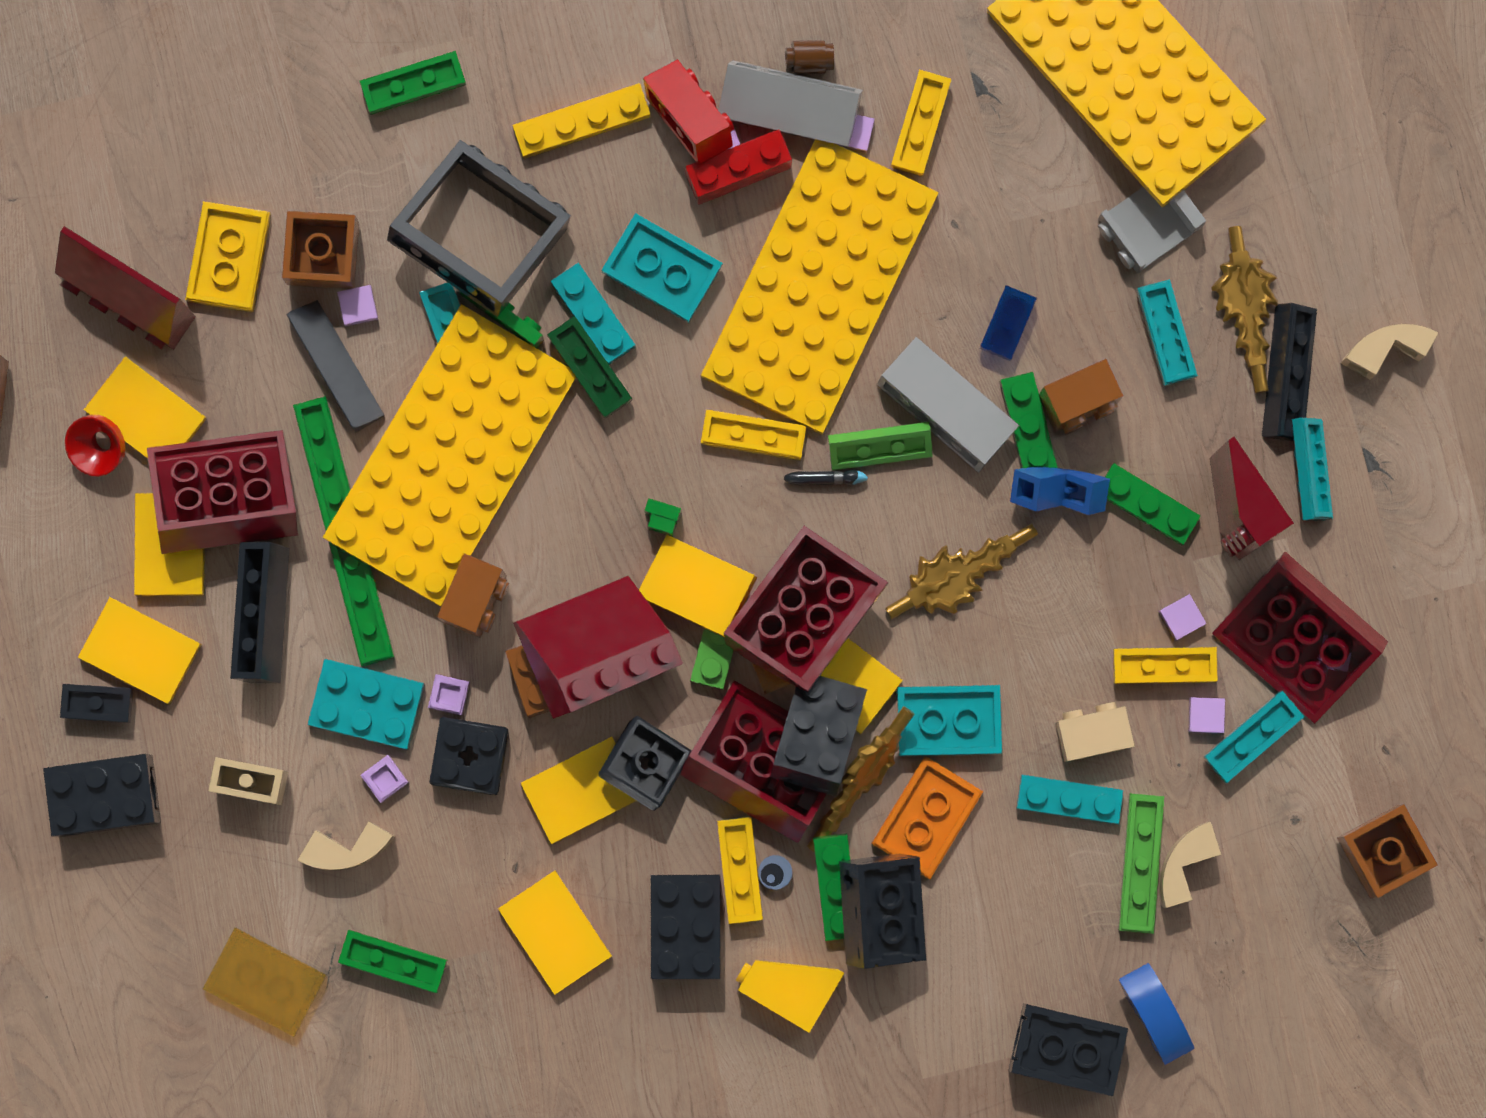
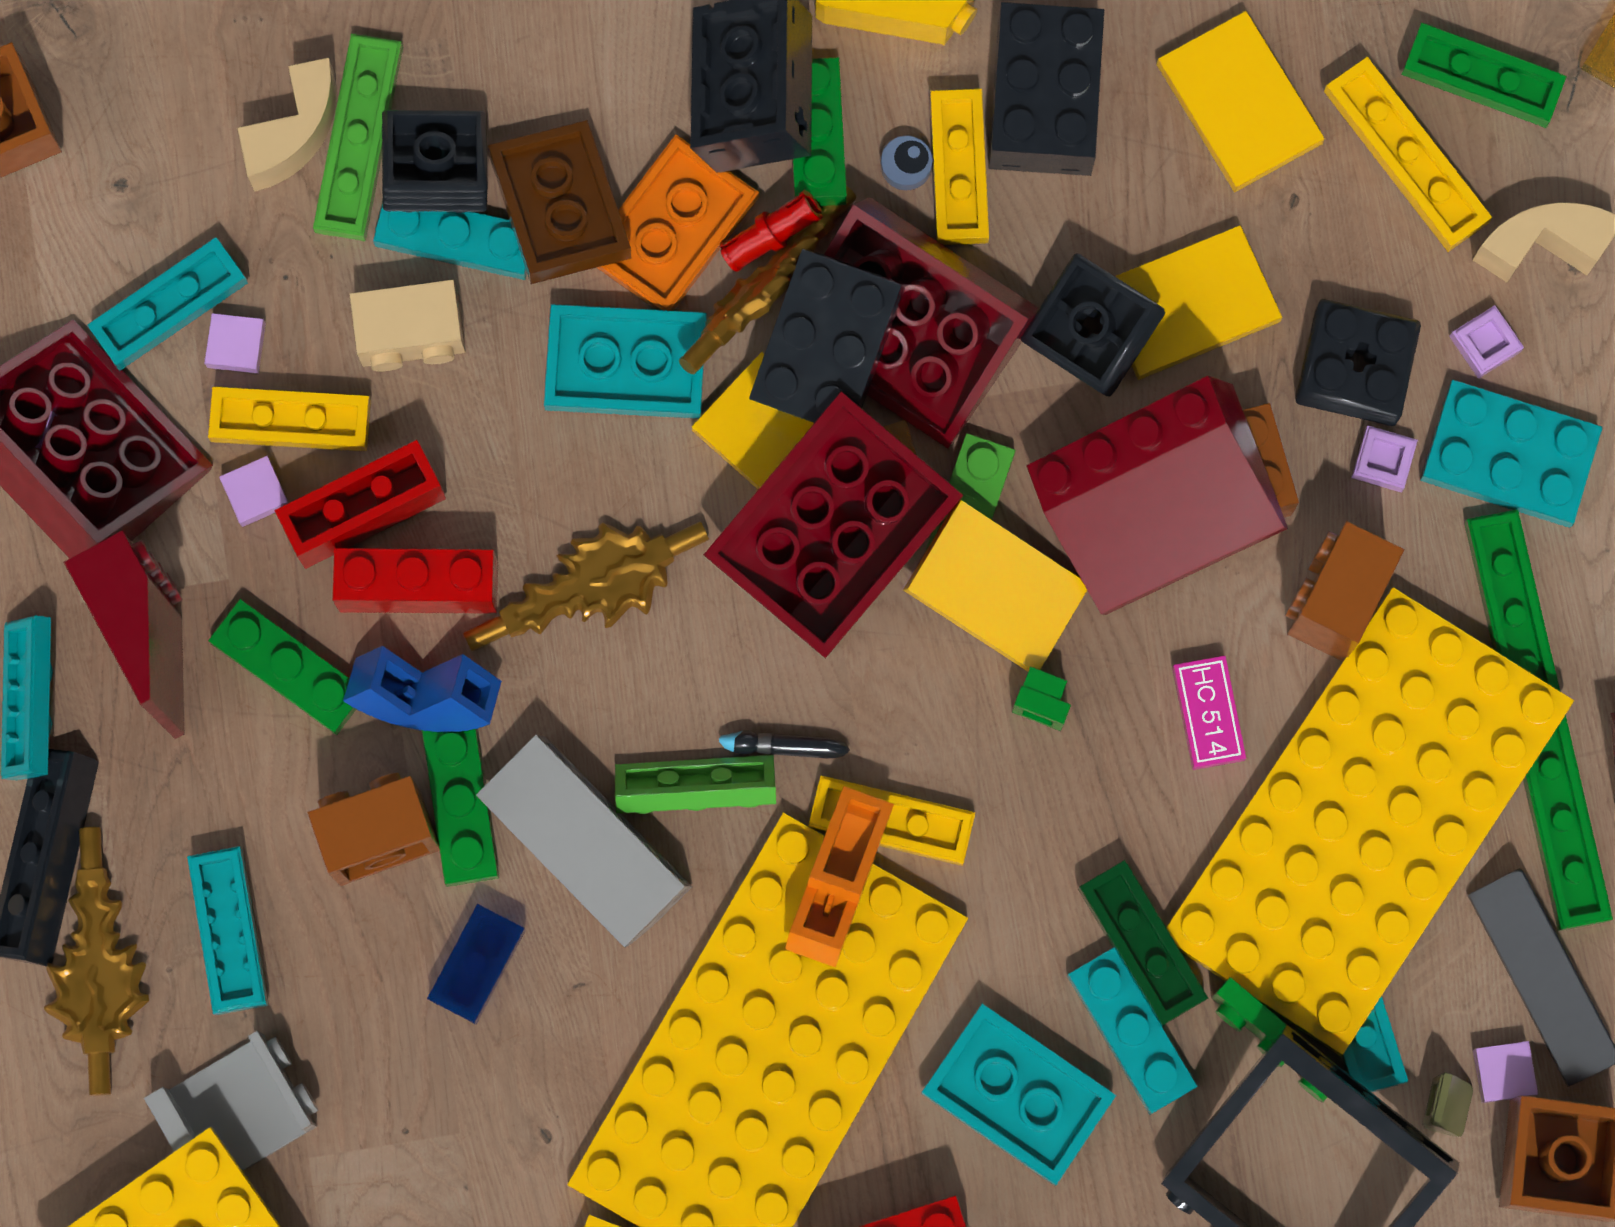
camera: 175 degrees left, 5 degrees down
(393, 281) = (1448, 1105): none -> olive slope
(442, 902) = (1407, 154): none -> yellow plate
(555, 518) = (1209, 712): none -> dark pink tile
(784, 390) = (839, 876): none -> orange slope
(861, 813) = (771, 231): none -> red pin
(1003, 822) = (559, 202): none -> reddish brown plate
(1071, 562) = (415, 580): none -> red brick
(1105, 856) = (434, 160): none -> black brick
(1112, 607) = (360, 504): none -> red brick

